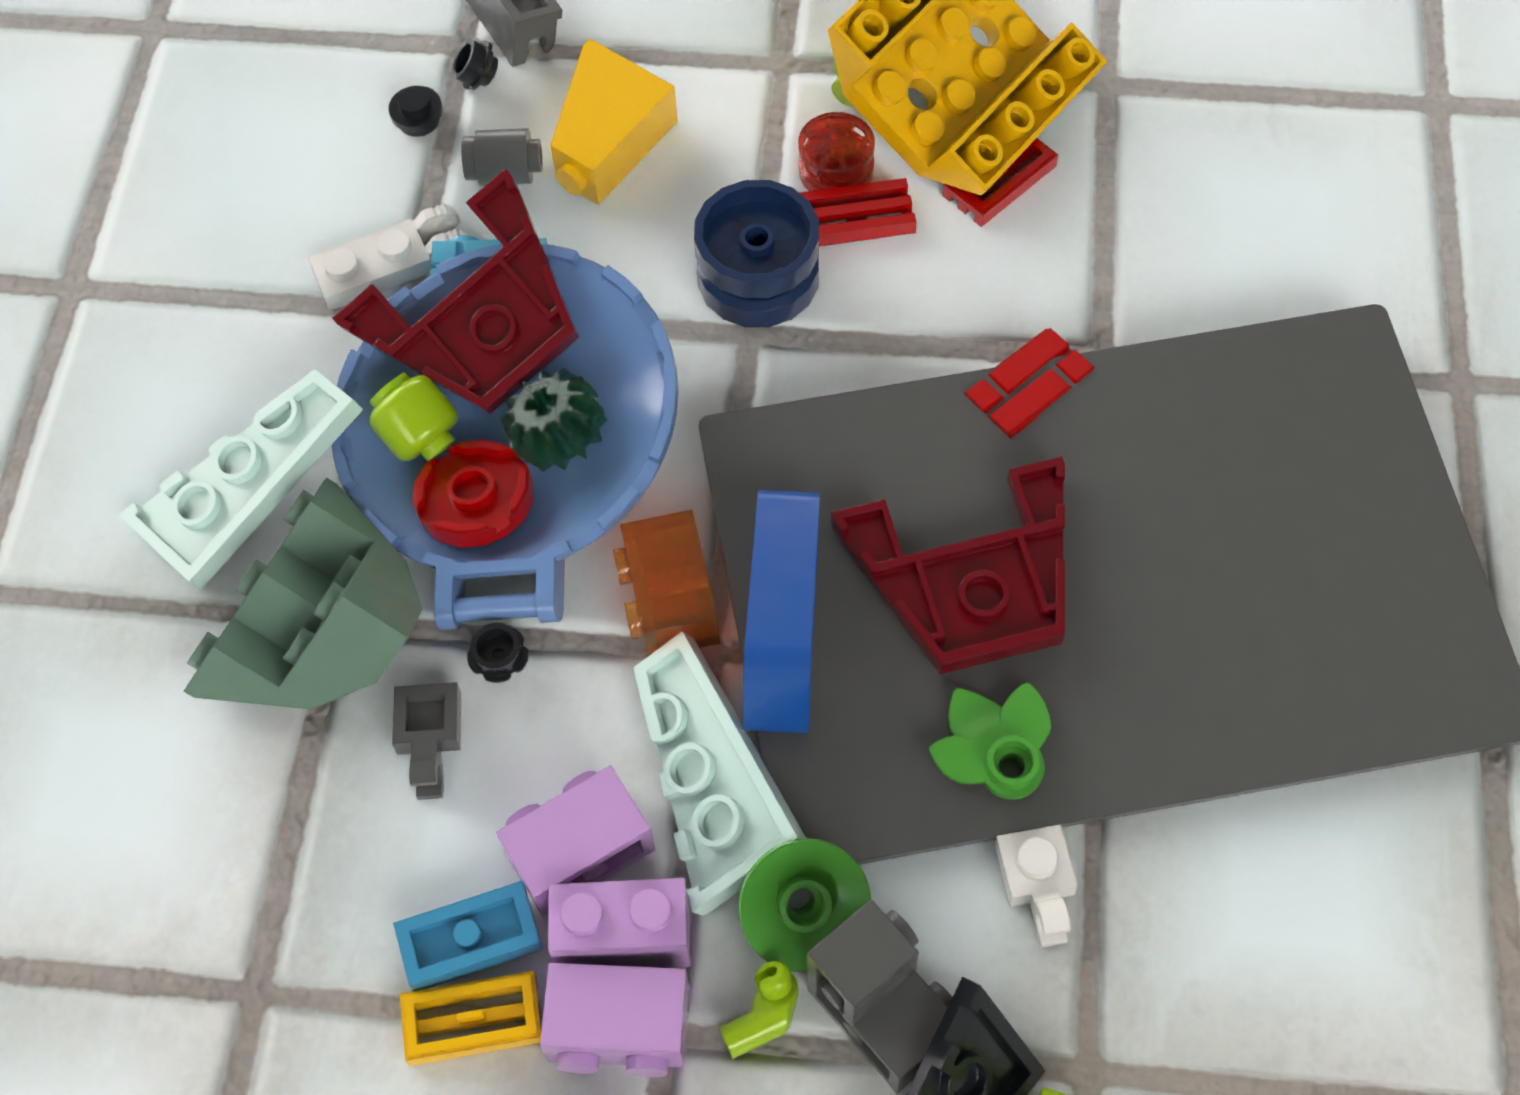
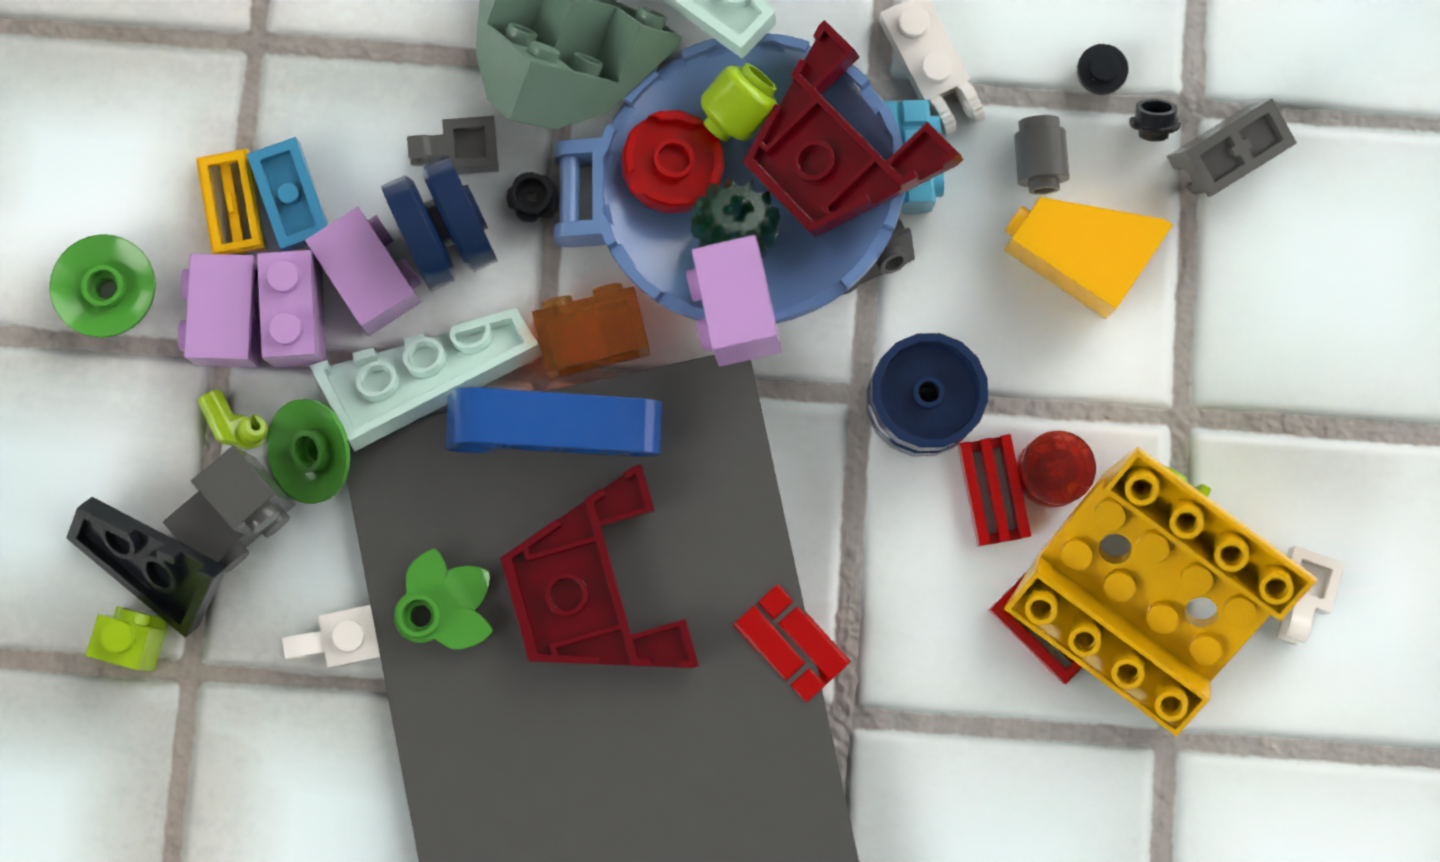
camera: 80 degrees right, 20 degrees up
(526, 731) = (439, 223): none -> dark blue wheel
(652, 387) = (735, 301): none -> lavender brick

